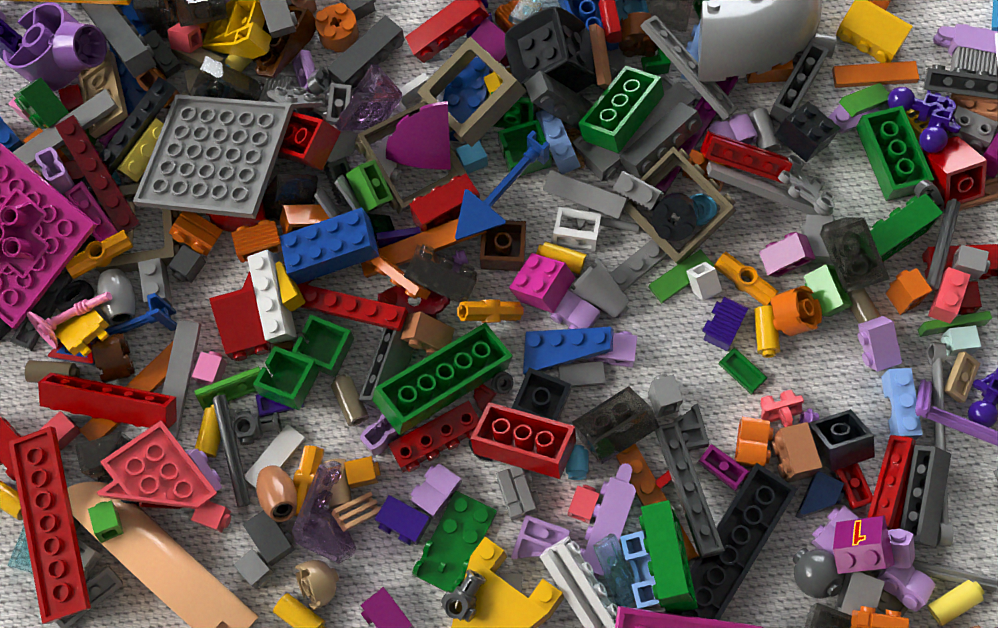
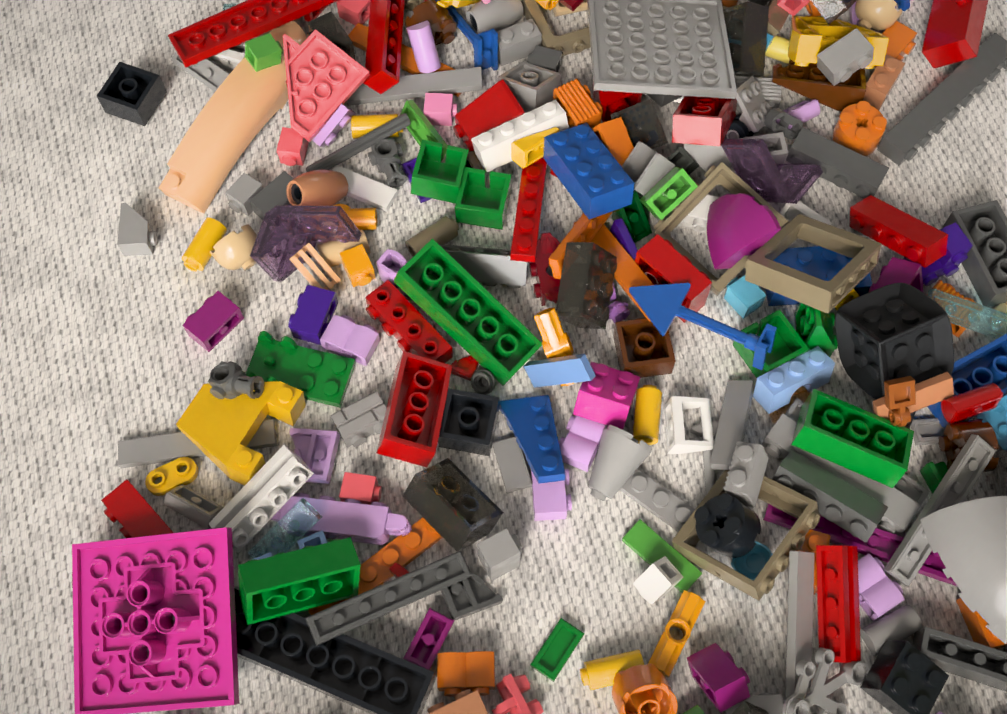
camera: 75 degrees right, 5 degrees down
(142, 366) = (424, 47): none -> lavender brick
(195, 232) = (577, 58): orange brick -> none
(212, 278) = (531, 84): none -> light grey slope
(426, 332) = (517, 289): nougat brick -> none
(515, 312) = (559, 370): none -> tile
(557, 99) = (837, 356): dark grey brick -> none
(578, 463) = (401, 475): medium azure brick -> none
(604, 64) = (899, 395): none -> dark orange plate
(725, 323) = (611, 616): dark purple brick -> none

